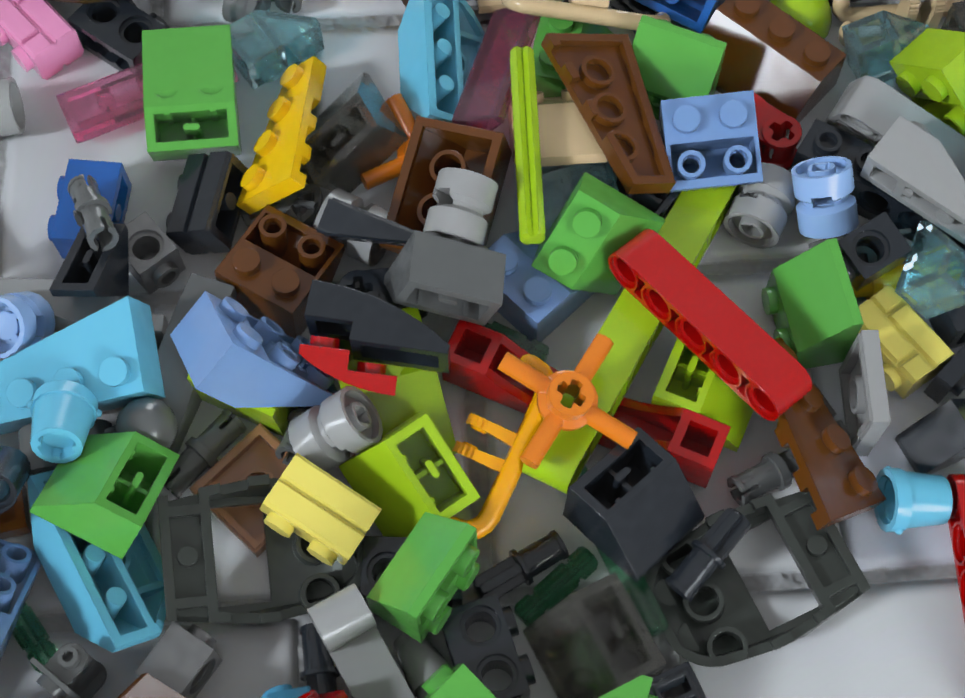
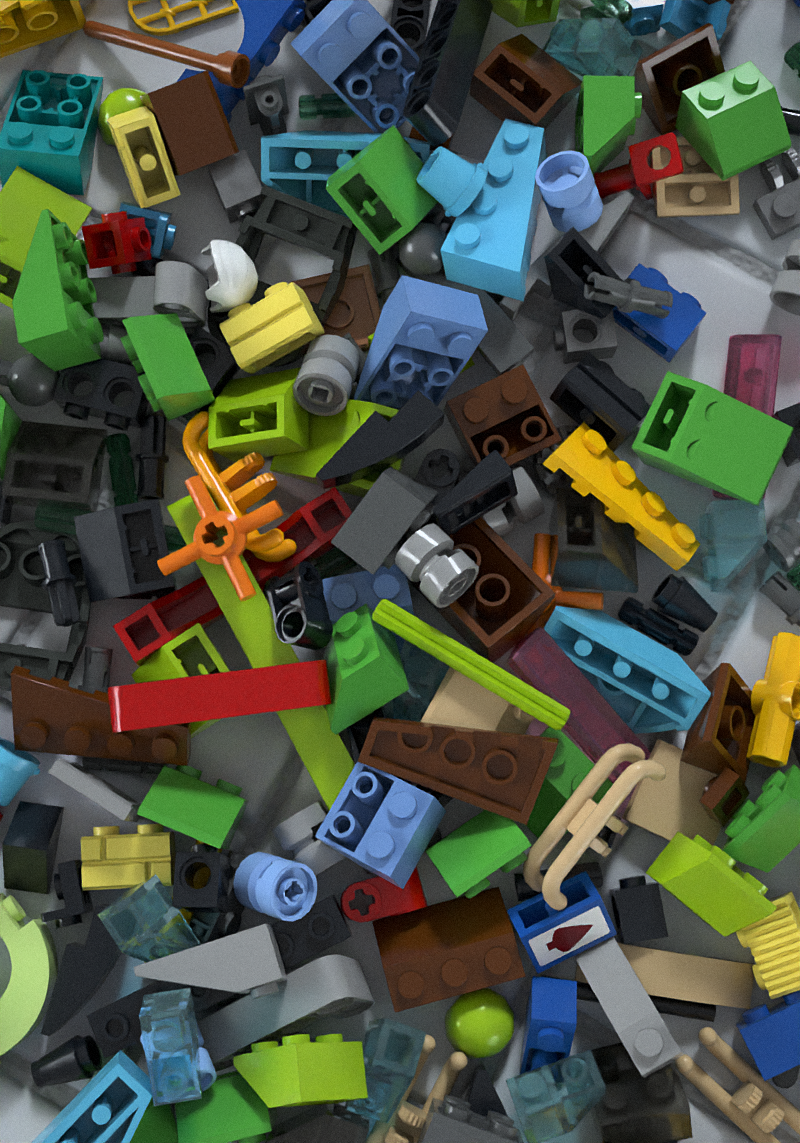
camera: 120 degrees right, 15 degrees up
(292, 584) = (230, 277): none -> white hair
(328, 358) = (375, 391): red slope -> none
(349, 54) = (682, 602): none -> black cone
(383, 60) = (658, 626): none -> black axle
(573, 319) = (300, 607): none -> black piece

